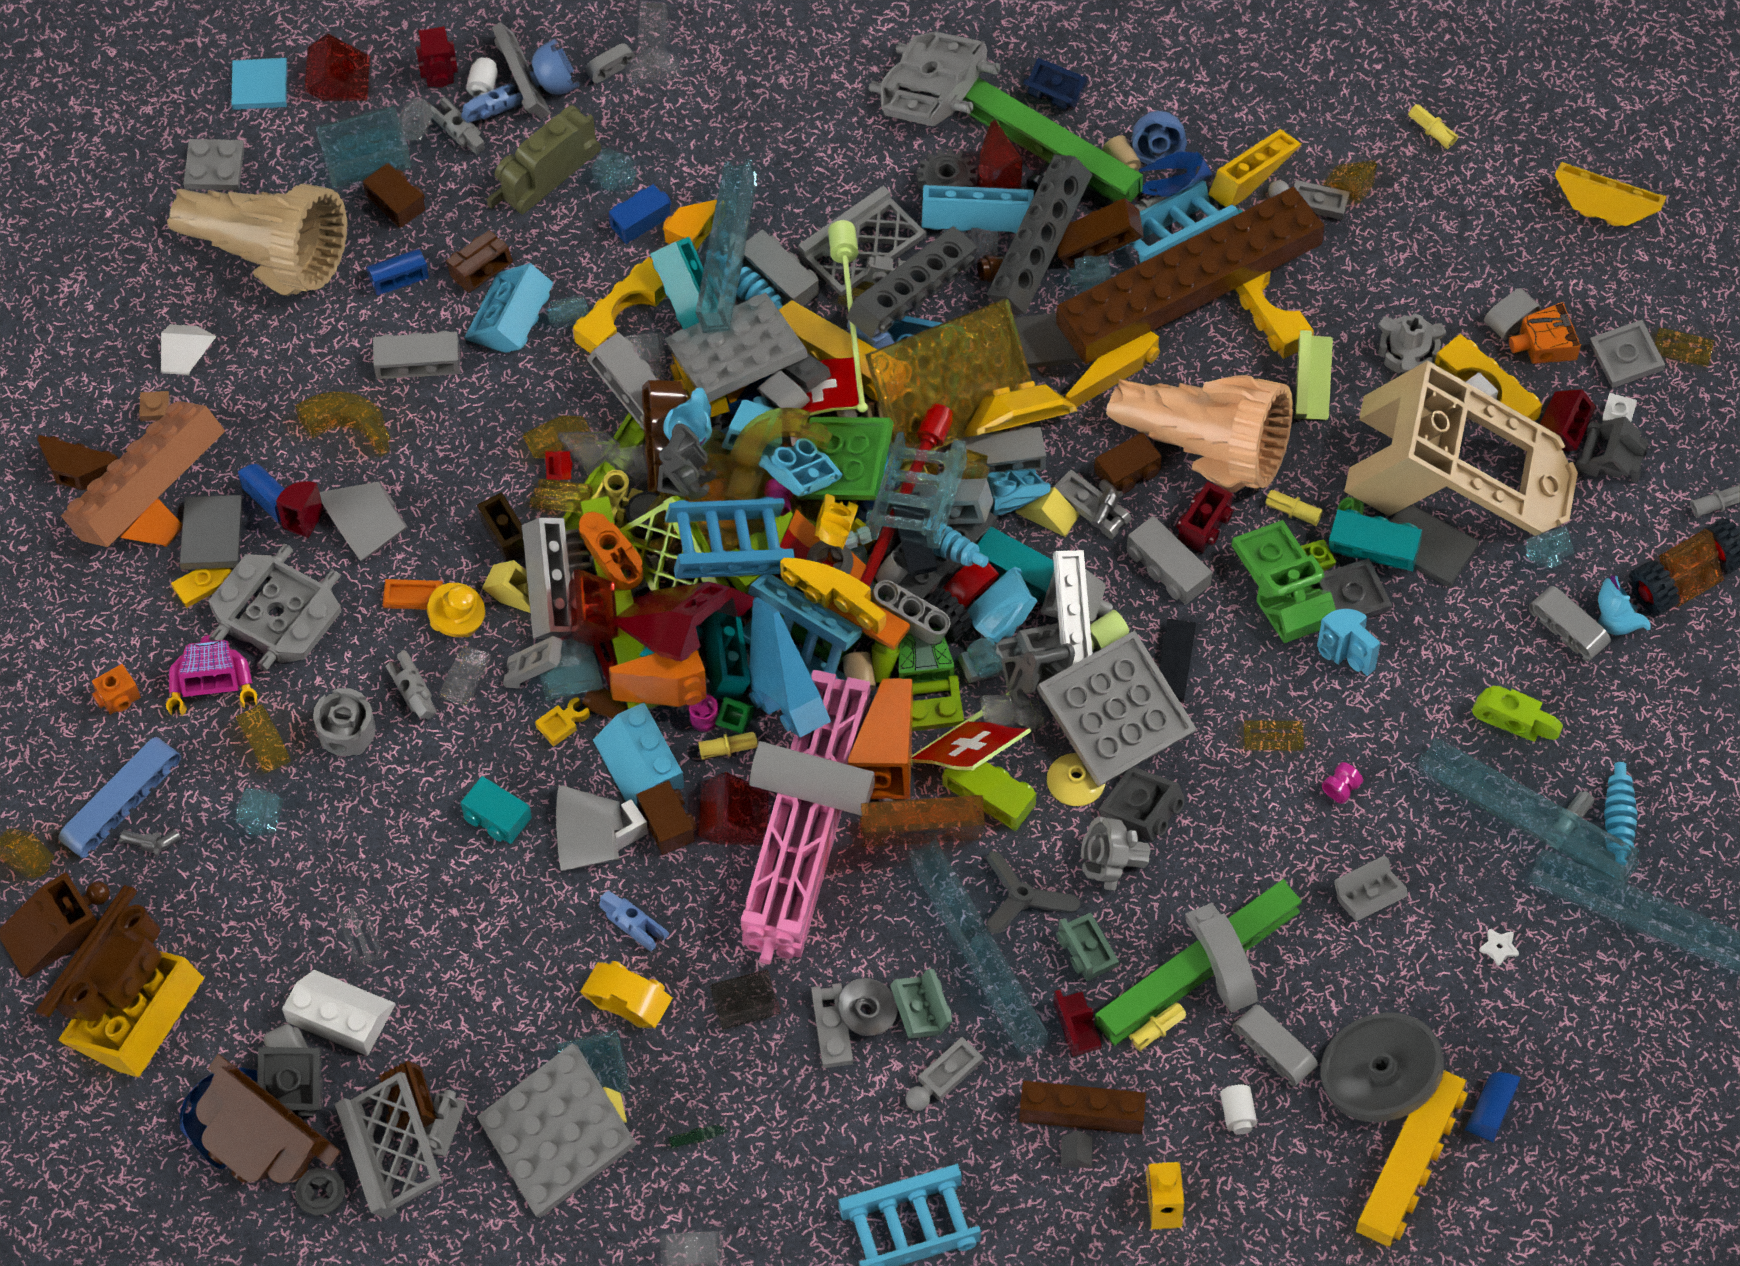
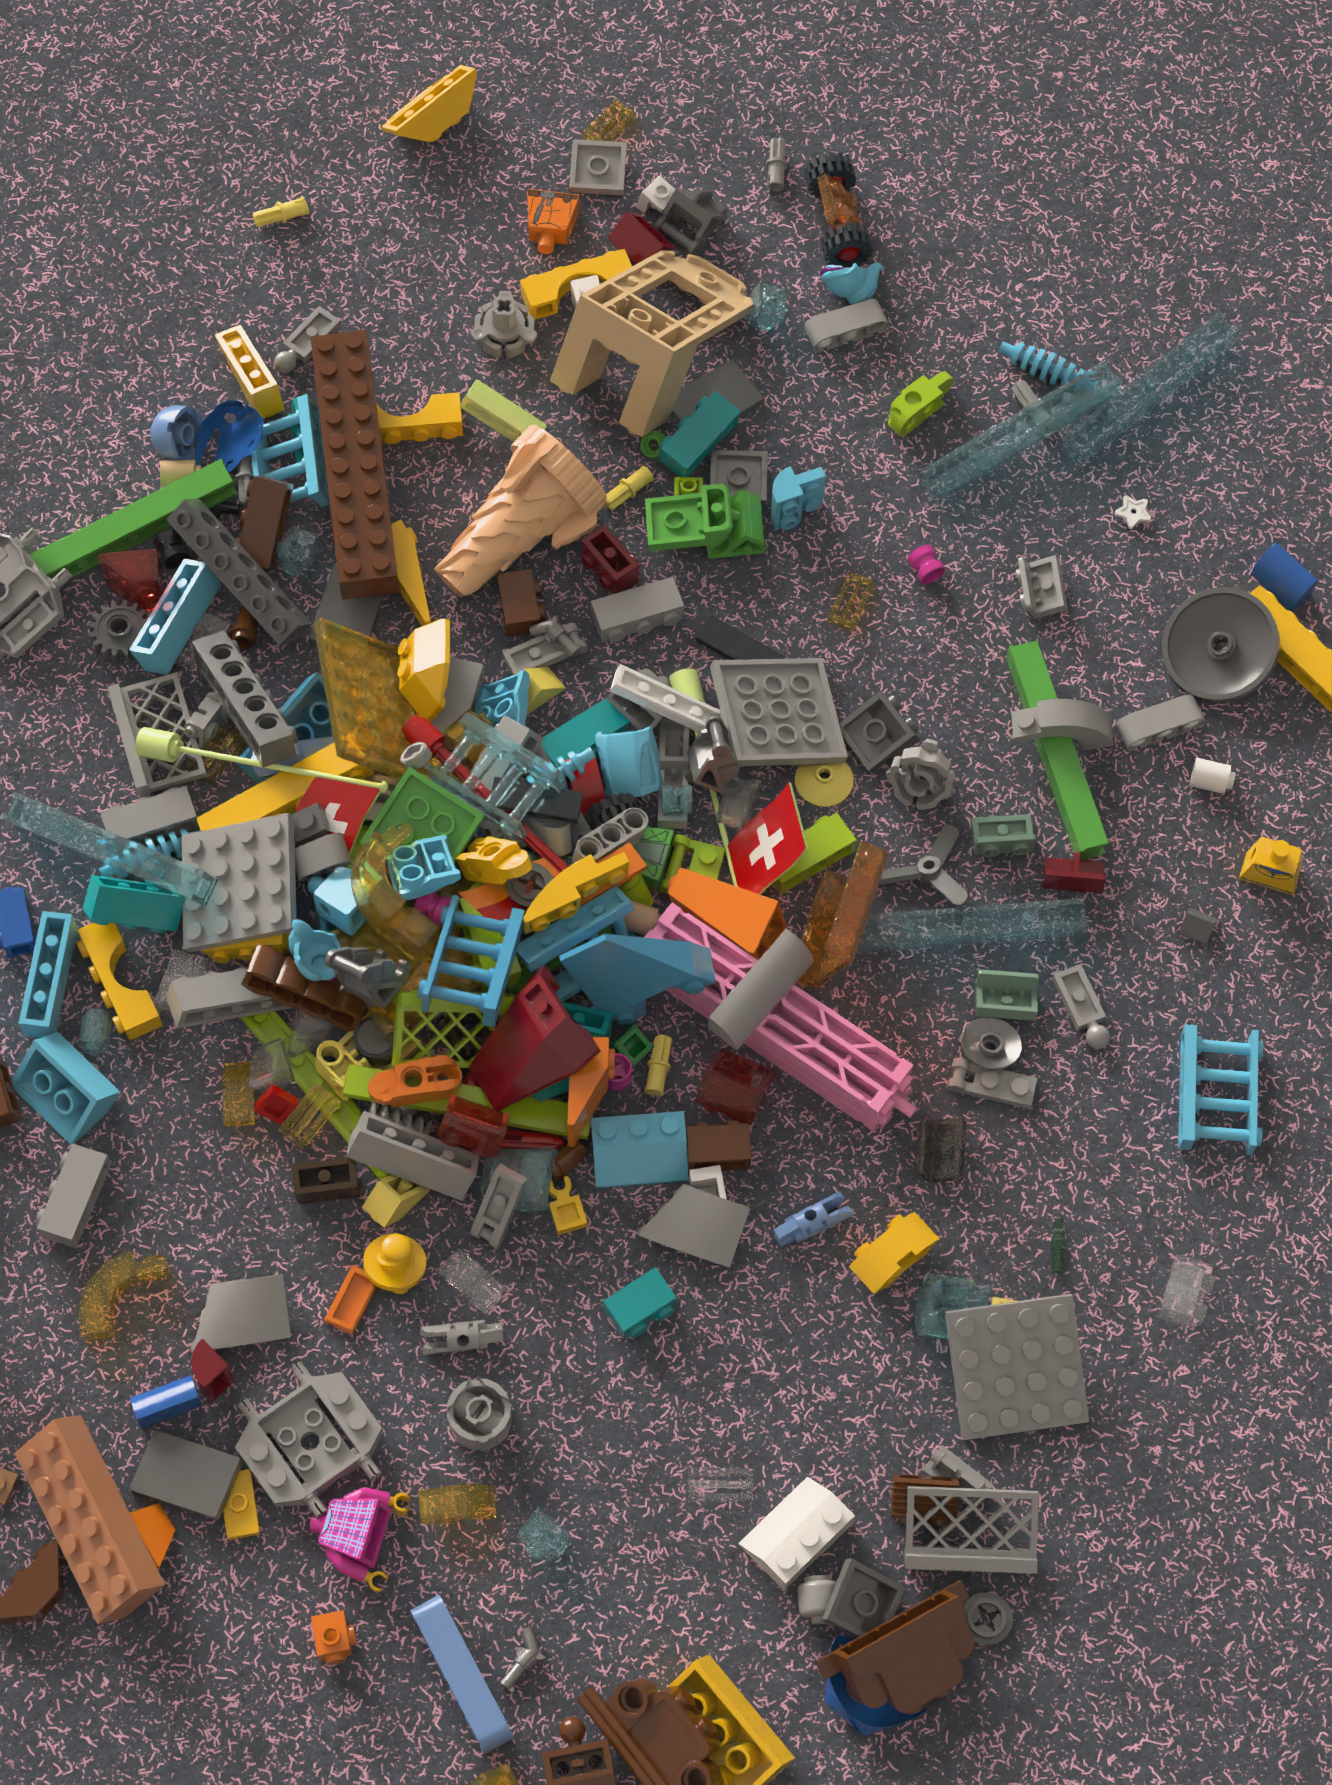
camera: 70 degrees left, 5 degrees up
(598, 254) = (48, 974): none -> medium azure brick
(692, 222) = (55, 880): light orange slope -> none
(907, 422) = (416, 755): none -> light grey tile
(1055, 83) = (65, 496): dark blue bracket -> none
(1082, 1107) = (1163, 901): reddish brown brick -> none
(1157, 1026) = (1105, 808): light yellow axle -> none
(1353, 177) = (305, 297): clear yellow slope -> none
(1508, 313) = (513, 235): light grey beam -> none

